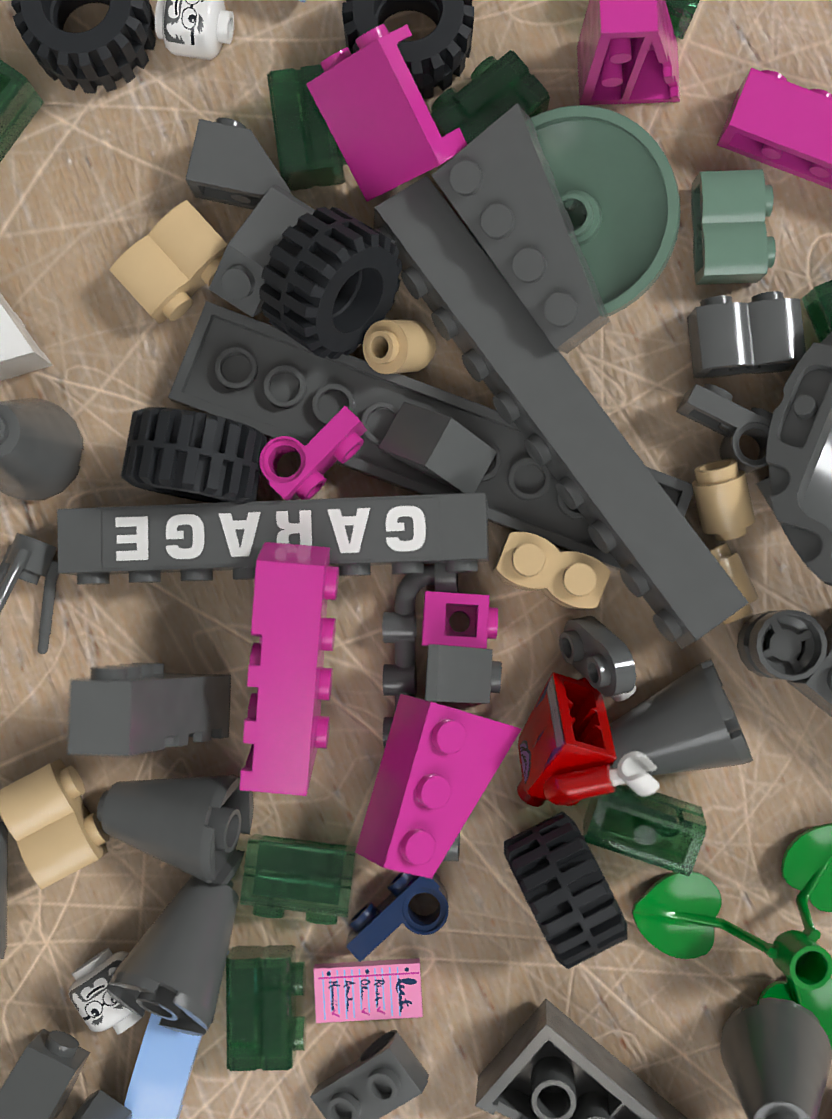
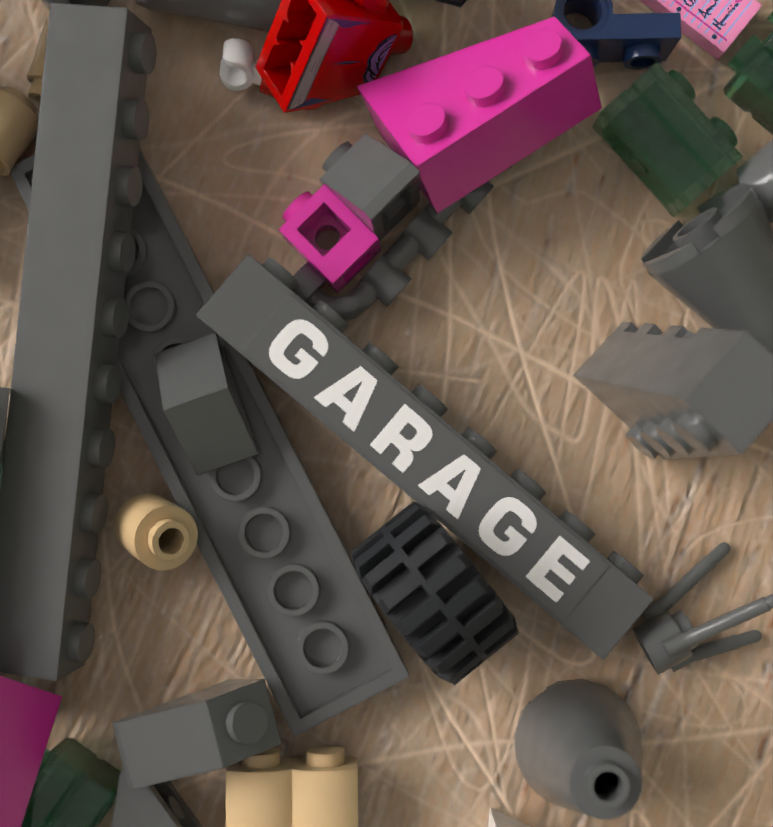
camera: 140 degrees left, 0 degrees up
(288, 667) = (517, 317): dark pink wedge -> none
(330, 281) = (160, 645): black tyre -> none
(335, 441) = (289, 490): dark pink plate -> none
(563, 577) = (203, 198): tan brick -> none
(598, 656) = (230, 90): dark grey plate -> none

